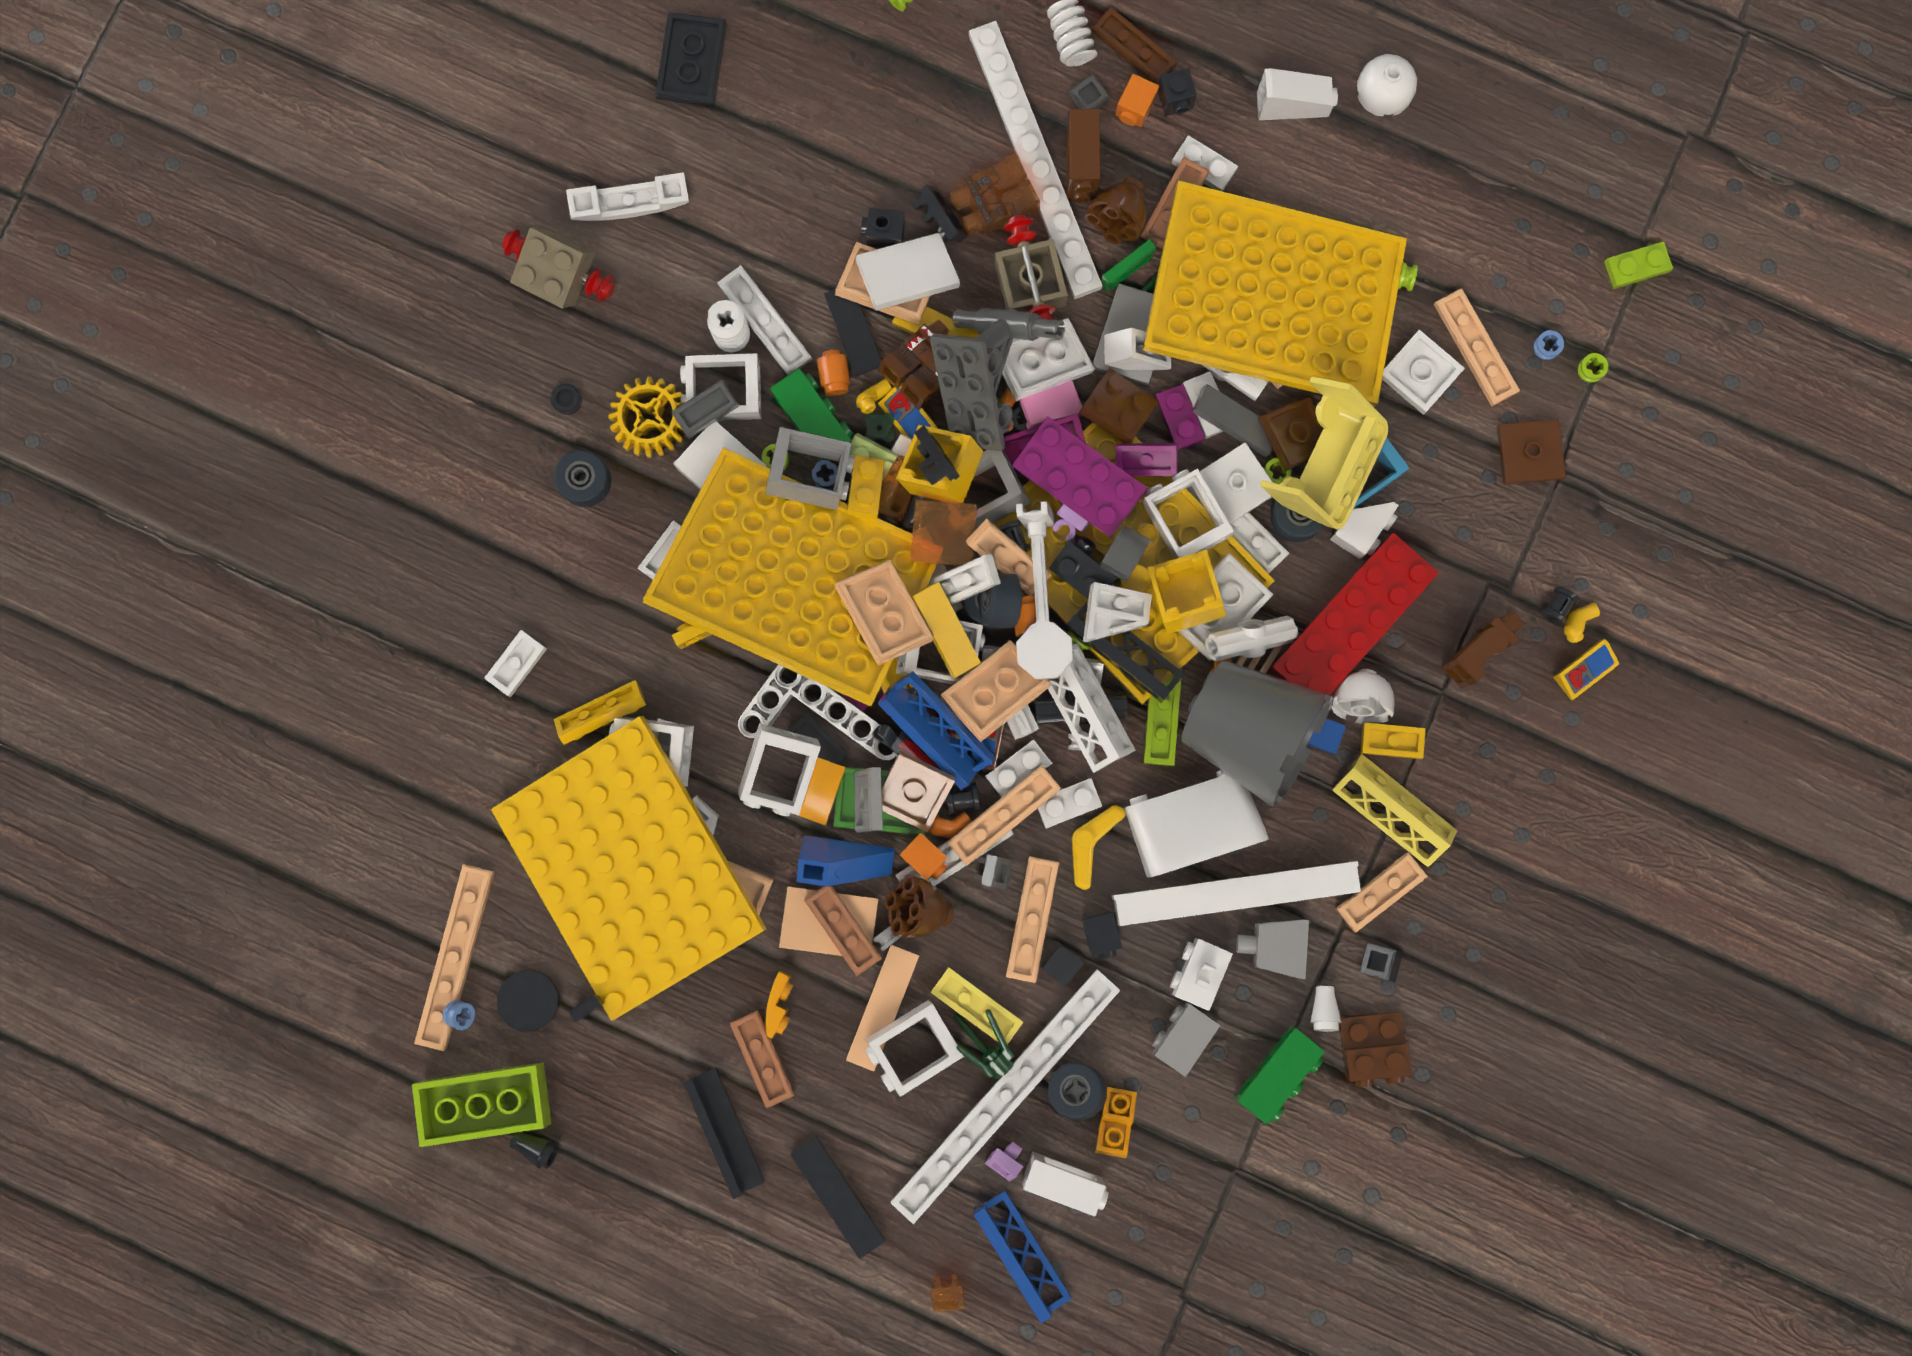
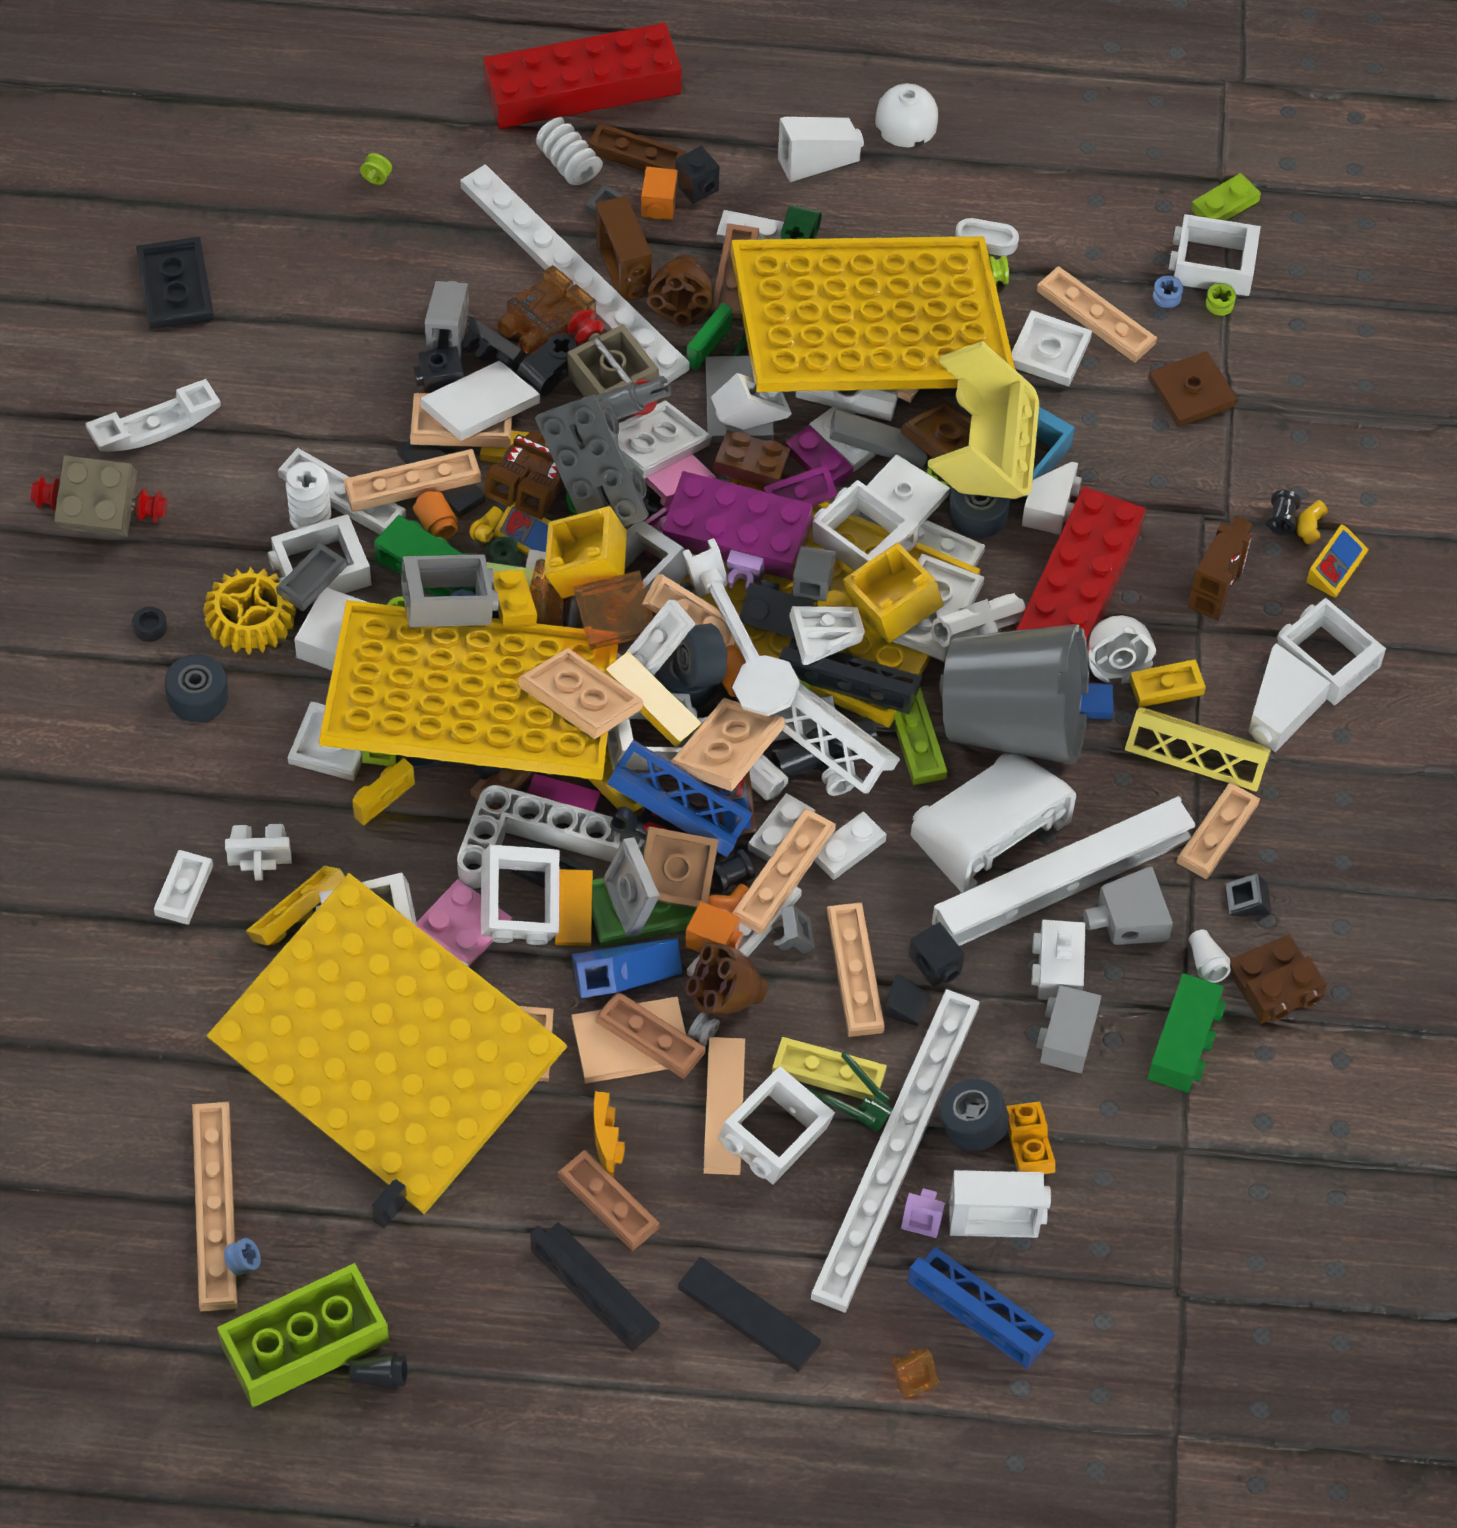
camera: 25 degrees left, 25 degrees down
(528, 1000) = (316, 1222): black tile -> none
(572, 643) = (258, 853): none -> white hips
(722, 768) = (456, 922): none -> bright pink piece
(824, 332) = (412, 480): none -> light nougat tile
(907, 176) = (447, 316): none -> light grey slope
(937, 462) = (580, 531): black plate -> none
(976, 252) = (548, 364): none -> black piece
(1085, 839) = (881, 873): yellow piece -> none
(1247, 176) = (801, 223): none -> dark green piece
(1421, 239) = (999, 237): none -> white tile
(1485, 790) = (1286, 698): none -> white slope
(1567, 745) = (1367, 650): none -> white window
(1617, 301) = (1220, 234): none -> white window

